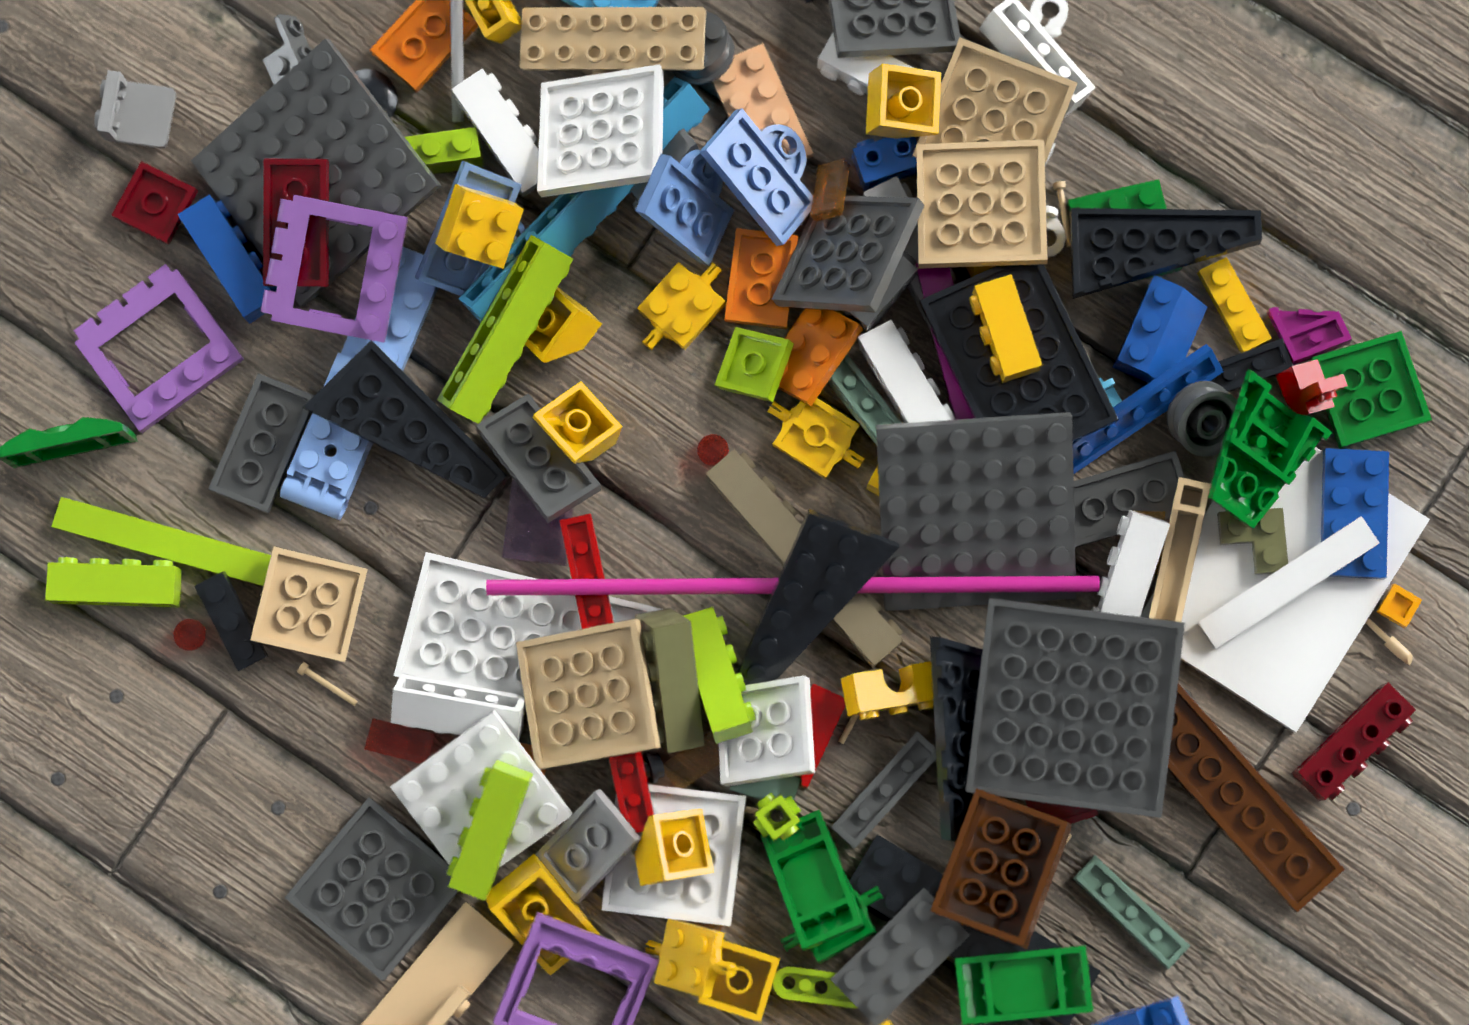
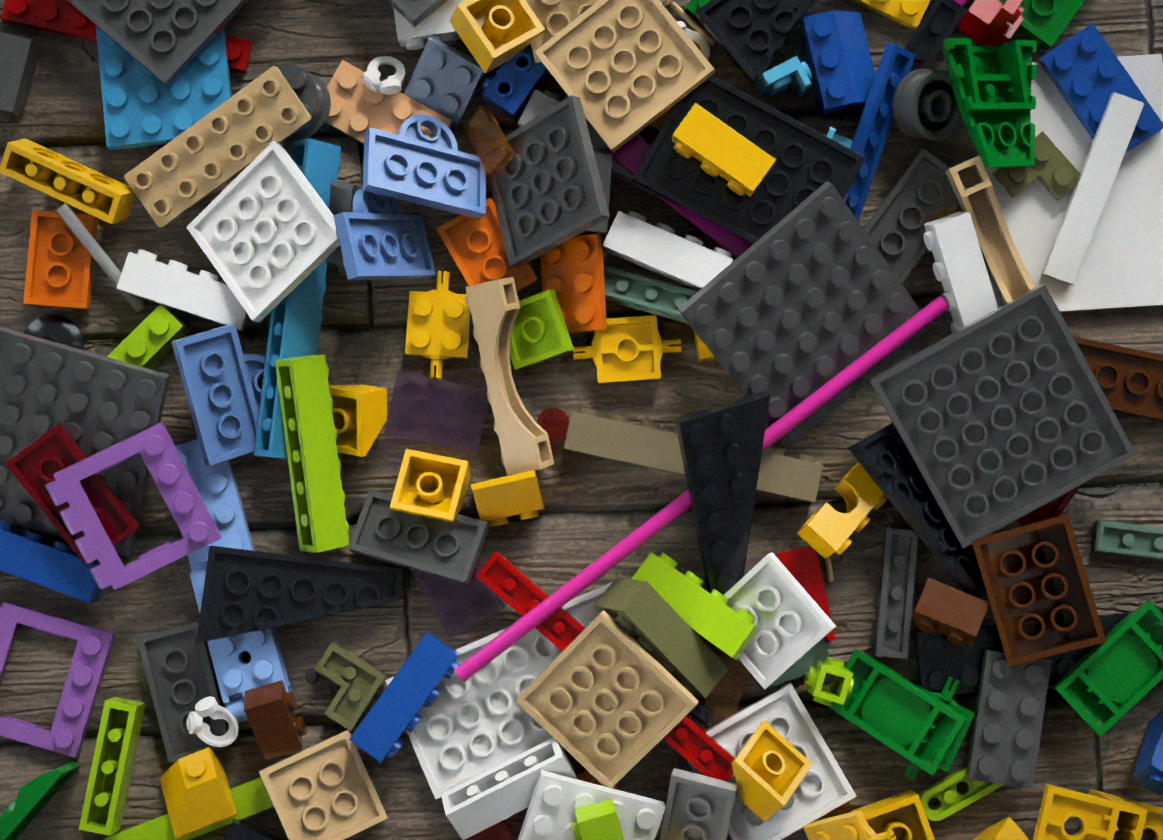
camera: 35 degrees left, 5 degrees up
(163, 457) = (112, 766): none -> lime brick
(212, 528) = (197, 793): none -> yellow slope
(273, 468) = (209, 707): none -> white piece
(316, 516) = (274, 719): none -> reddish brown brick
(403, 536) = (357, 681): none -> olive plate
(431, 575) = (405, 696): none -> blue brick
(479, 226) = (227, 385): yellow brick -> none
(628, 373) = (437, 412): none -> clear purple plate
(633, 479) = (508, 497): none -> yellow slope
(731, 325) = (493, 312): none -> tan arch
(782, 89) = (389, 86): none -> white piece
(831, 117) = (445, 80): none -> sand blue plate
(916, 835) = (949, 612): none -> reddish brown brick
(1099, 308) = (789, 72): none -> medium azure bracket

